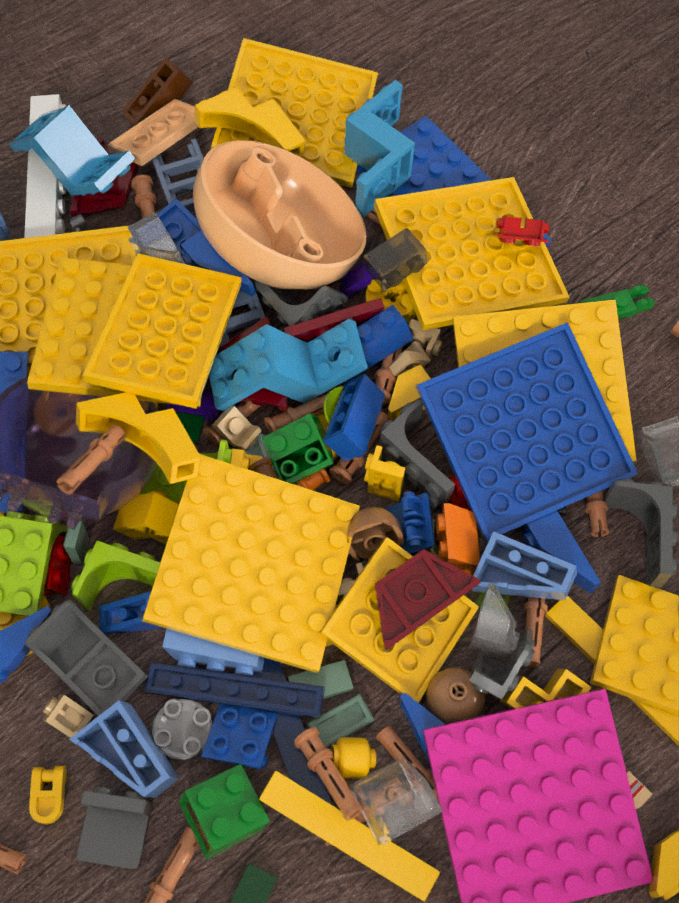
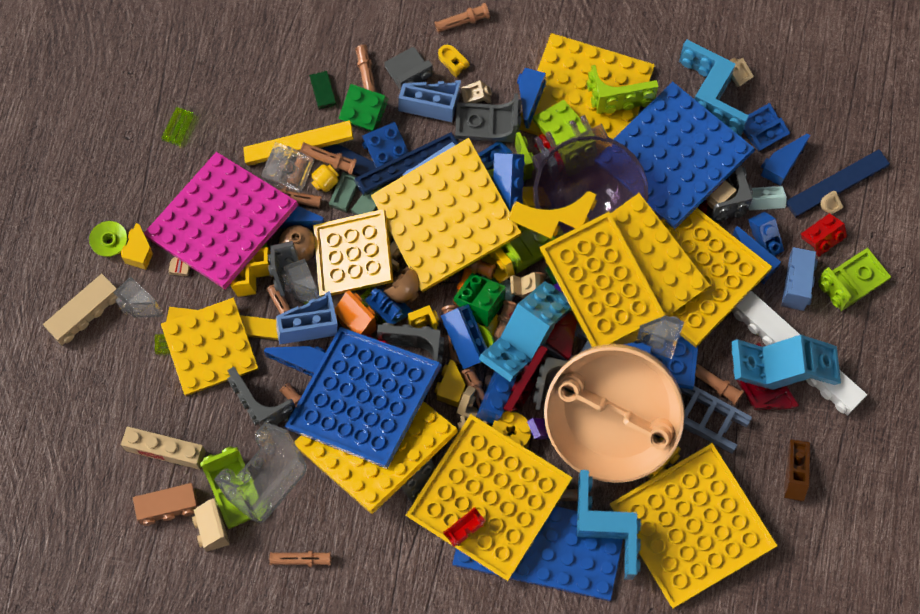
camera: 140 degrees right, 5 degrees up
(78, 223) = (747, 338): flat silver hand -> none
(98, 451) = (560, 176): nougat pin -> none
(142, 535) = (509, 177): none -> blue brick
(156, 132) = (763, 438): light nougat tile -> none
(181, 728) = (417, 130): light grey dish -> none
(263, 122) = (694, 484): yellow arch -> none
(396, 259) = (519, 436): clear smoke brick -> none
(417, 594) = (351, 264): dark red wing -> none
(624, 301) = (378, 546): green hinge -> none

